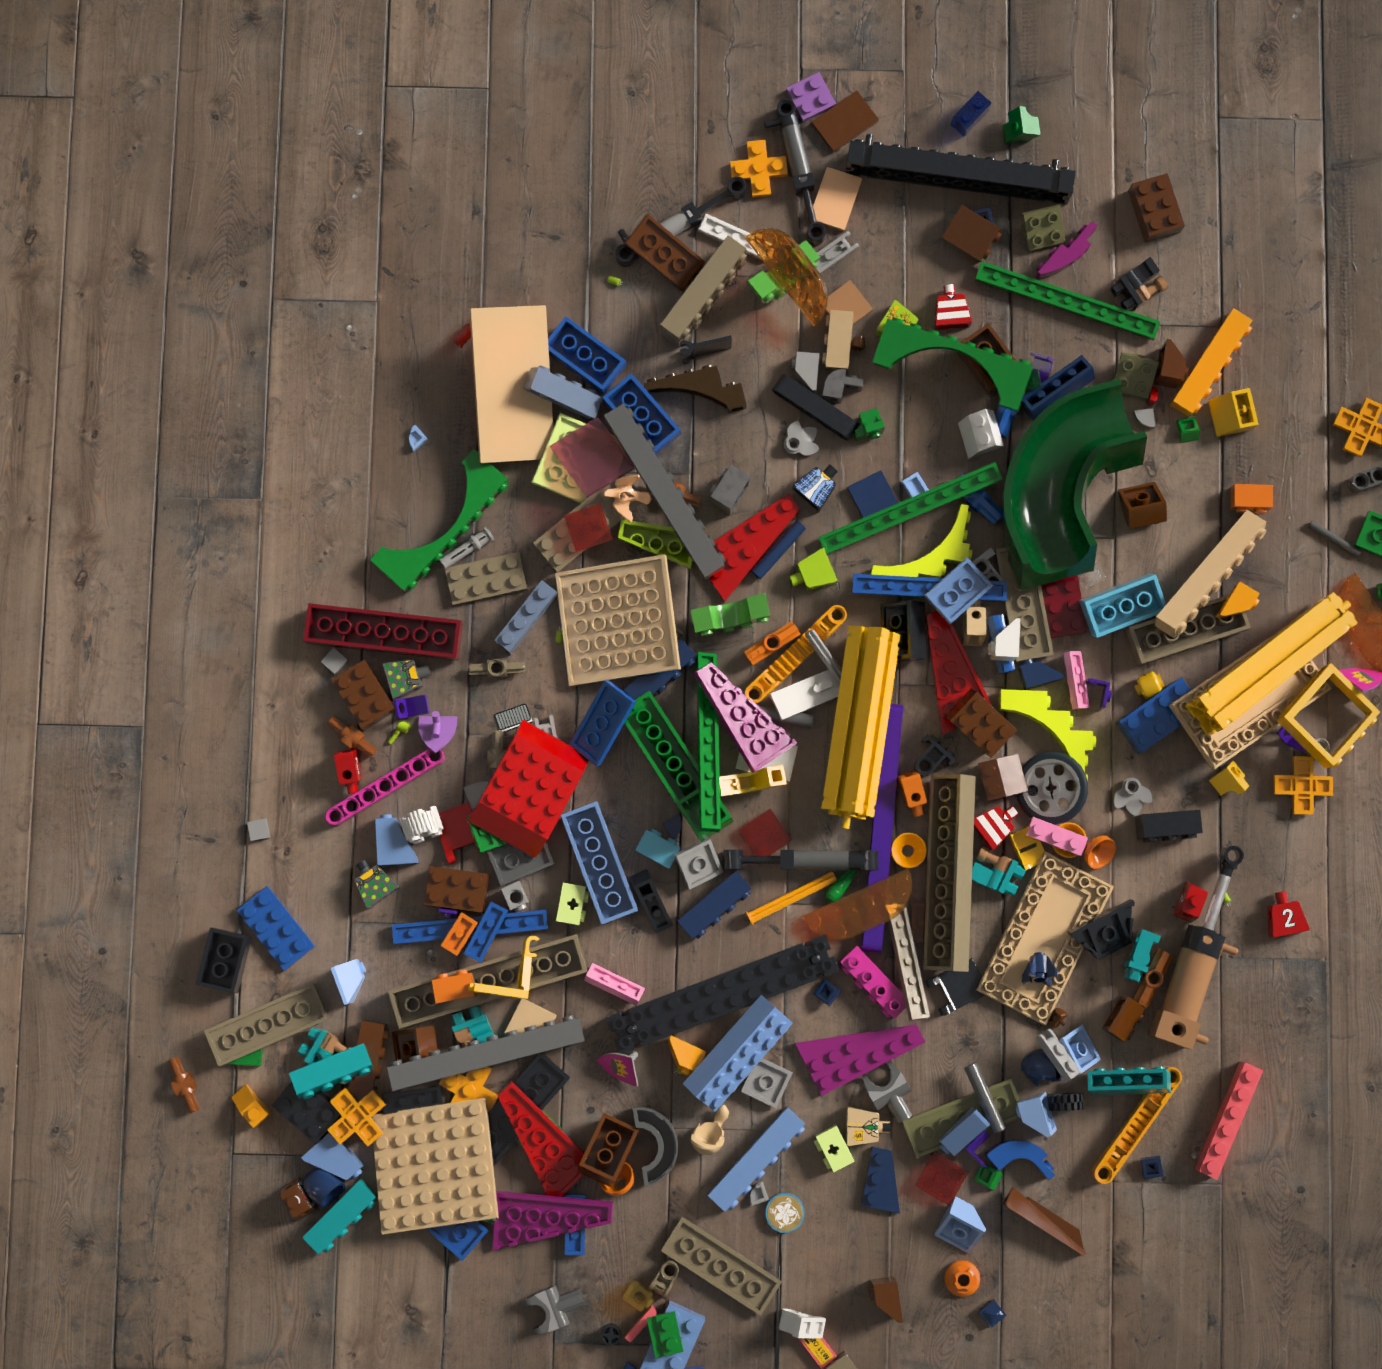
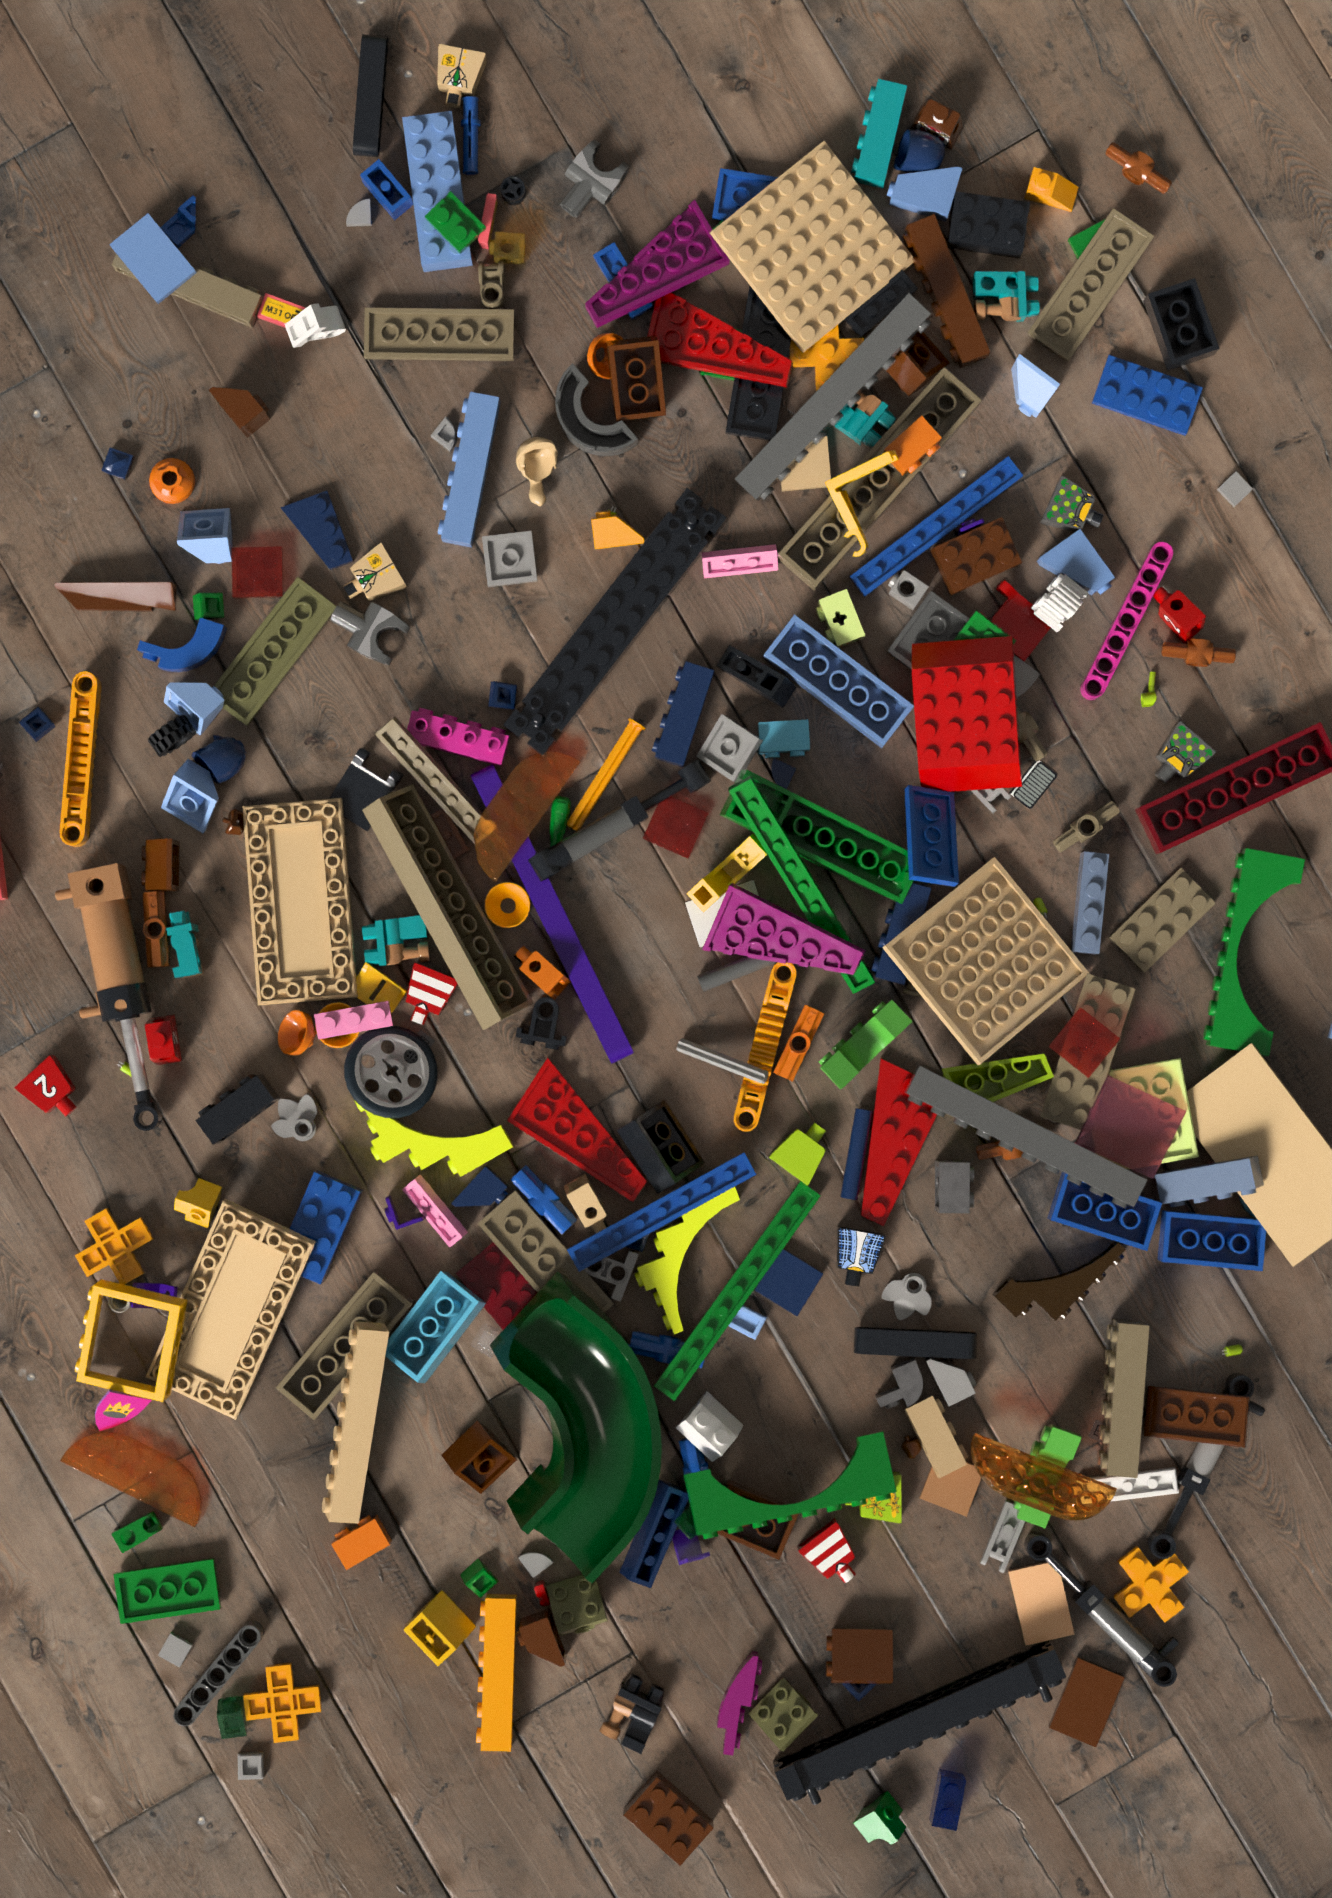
camera: 145 degrees right, 5 degrees up
(331, 1071) = (988, 275): teal brick -> none
(334, 661) = (1271, 724): light grey tile -> none
(356, 1117) = (929, 245): light orange plate -> none
(364, 695) = (1214, 706): reddish brown brick -> none
(411, 706) = (1154, 726): dark purple bracket -> none
(437, 730) = (1108, 717): medium lavender shield -> none
(446, 561) = (1203, 953): light grey pin -> none
(459, 934) = (942, 509): orange plate -> none
(486, 932) = (915, 529): blue plate -> none
(620, 1066) = (678, 477): dark pink shield -> none
(624, 494) = (1067, 1104): light nougat animal -> none
(704, 347) = (1092, 1322): black flag -> none
(737, 1053) = (559, 567): medium blue brick -> none
(784, 1212) = (405, 432): tile -> none
(805, 694) = (725, 1008): white piece -> none
(811, 97) = (1143, 1707): medium lavender plate -> none
(842, 1157) = (400, 544): yellowish green brick -> none
(846, 1057) = (437, 640): magenta wing -> none
(860, 723) = (645, 1011): yellow brick -> none
(870, 425) = (840, 1360): green brick -> none
(958, 591) = (627, 1226): medium blue tile -> none
(963, 1132) = (264, 633): medium blue slope -> none
(975, 1144) = (243, 632): dark purple bracket -> none
(981, 723) = (512, 1094): reddish brown brick -> none
(984, 1097) = (262, 685): dark grey piece -> none
(1003, 777) = (452, 1050): slope -> none
(1006, 644) = (539, 1199): white slope -> none
(1039, 970) = (285, 860): dark blue brick -> none
(1058, 1055) = (209, 778): light grey hinge -> none
(1067, 300) = (704, 1644): green plate -> none
(1107, 931) = (236, 949): black wing -> none
(1129, 1081) = (115, 798): teal brick -> none
(1149, 685) = (350, 1255): yellow head -> none
(1239, 601) = (306, 1408): light orange slope -> none
(1271, 663) = (228, 1359): yellow brick -> none
(1334, 538) = (217, 1552): dark grey bar -> none

